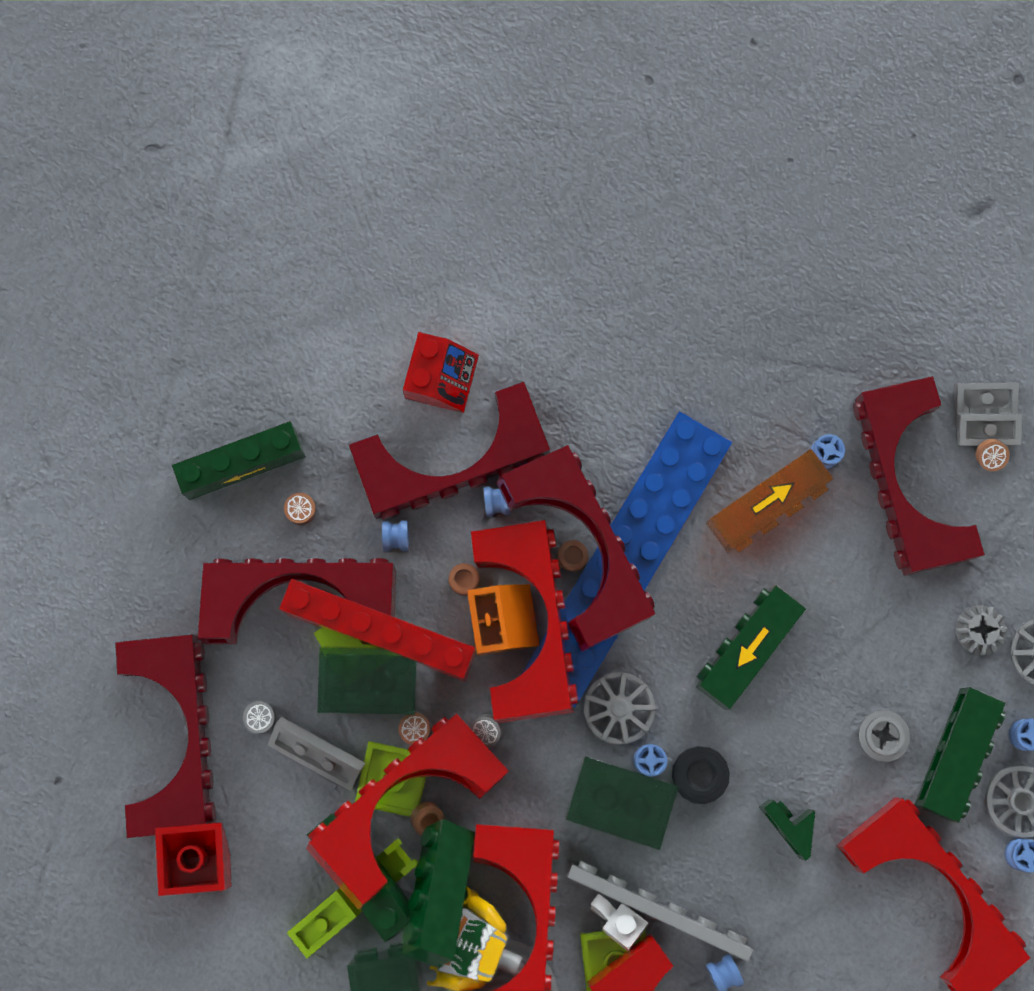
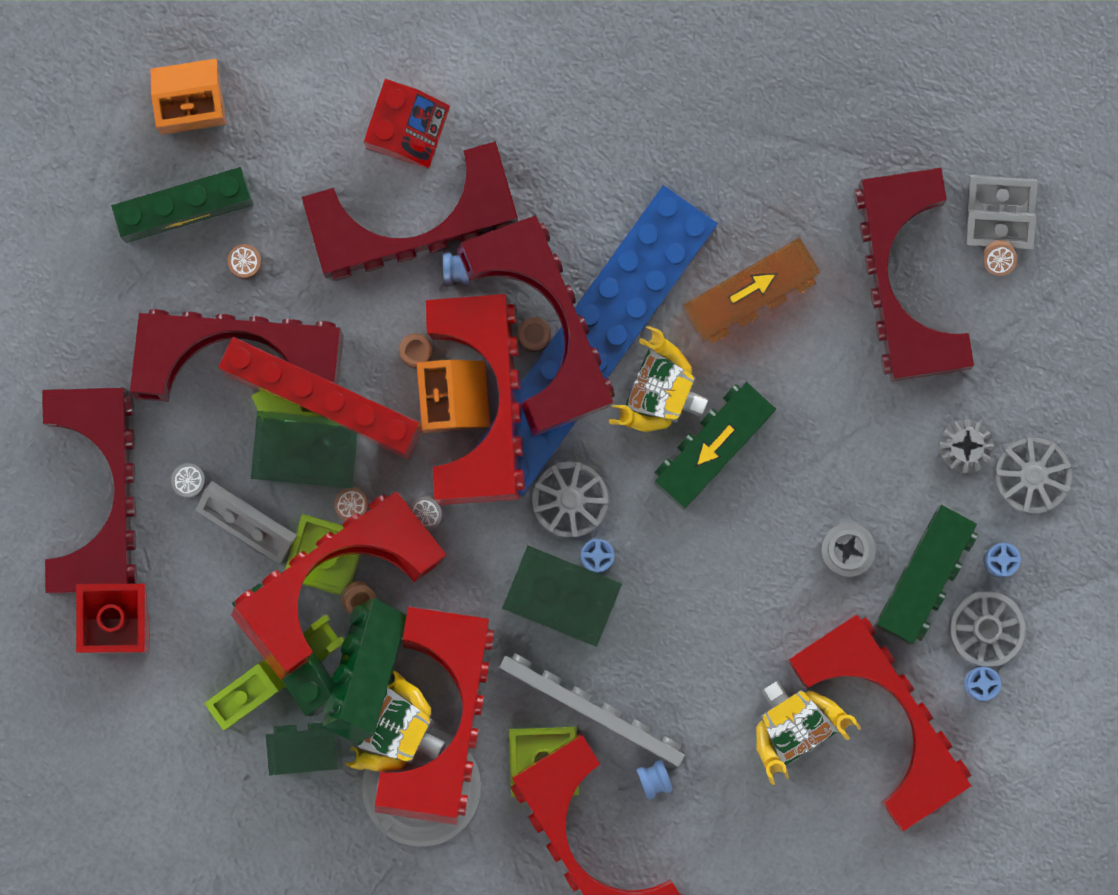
camera: 10 degrees right, 5 degrees up
(238, 363) = (187, 97): none -> orange slope
(395, 536) = (345, 298): medium blue wheel -> none
(622, 924) = (551, 721): white plate -> none
(695, 597) = (660, 388): none -> torso
(720, 771) = (655, 555): black tyre -> none
(796, 833) = (744, 644): dark green slope -> none
(832, 447) = (823, 235): medium blue wheel -> none
(855, 911) = (796, 726): none -> torso

